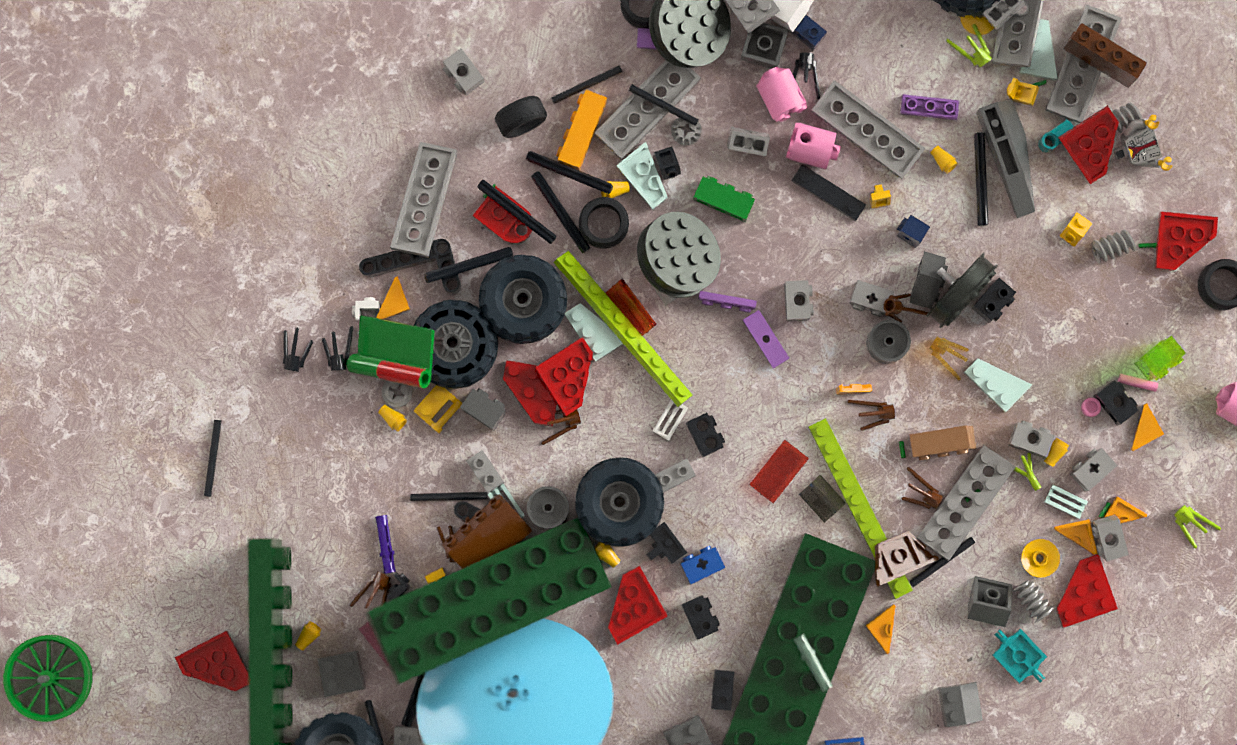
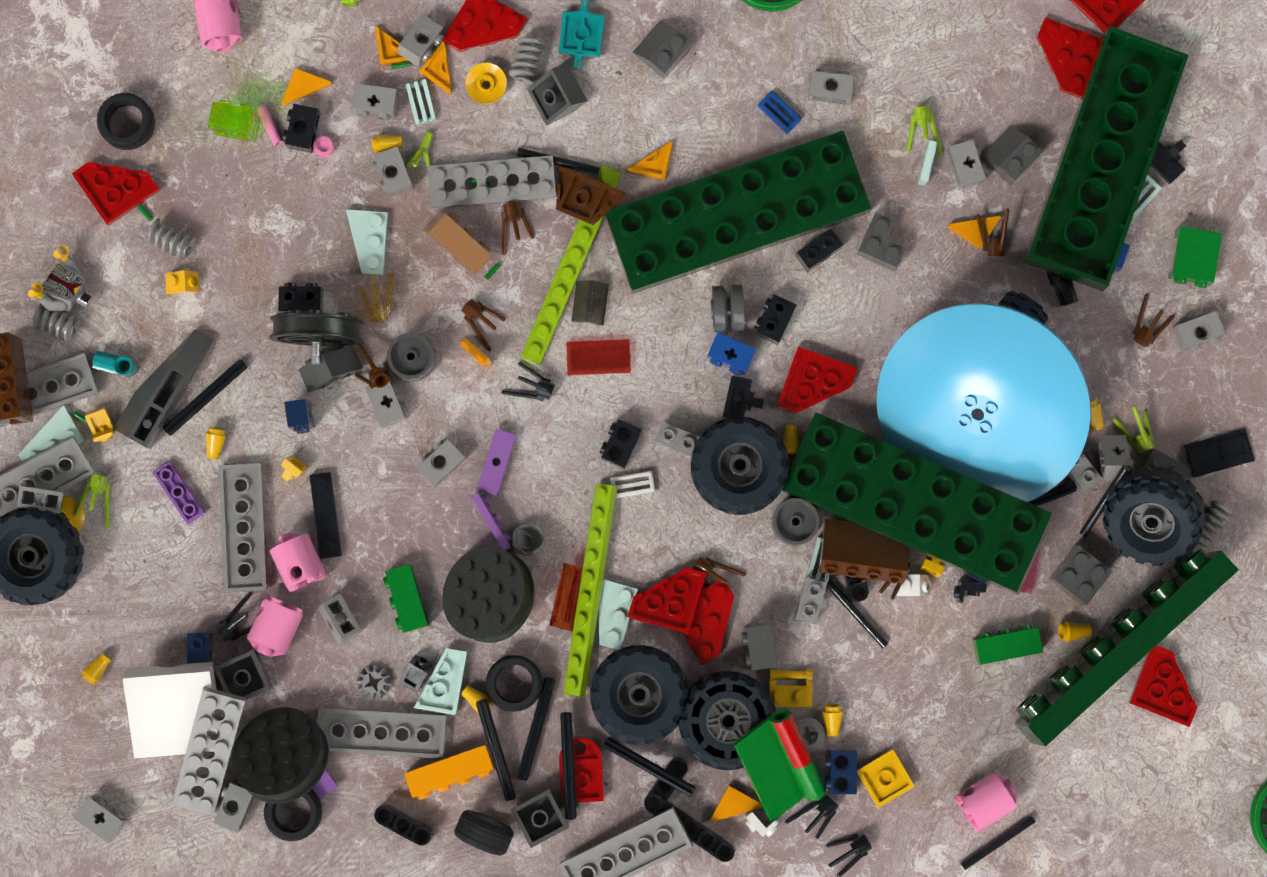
camera: 130 degrees left, 0 degrees up
(246, 474) = (987, 800): none -> bright pink cylinder
(322, 418) = (885, 778): none -> yellow plate
(338, 581) = (1007, 644): none -> green brick
(348, 396) = (848, 771): none -> dark blue brick
(380, 582) = (977, 610): reddish brown plant -> none
(385, 544) = (949, 624): dark purple pin -> none
(433, 553) = (915, 586): none -> white bracket
(498, 163) = (540, 818): none -> dark grey brick
(579, 62) = (392, 824): none -> black beam
(587, 84) = (406, 801): black bar -> none
(664, 105) = (369, 719): black bar -> none
(694, 315) = (528, 539): none -> light grey hair
(736, 589) = (727, 308): none -> dark grey wheel
(789, 414) = (543, 387): none -> black plant
(812, 662) = (732, 199): sand green pin -> none
(1092, 143) = (95, 328): red plate -> none

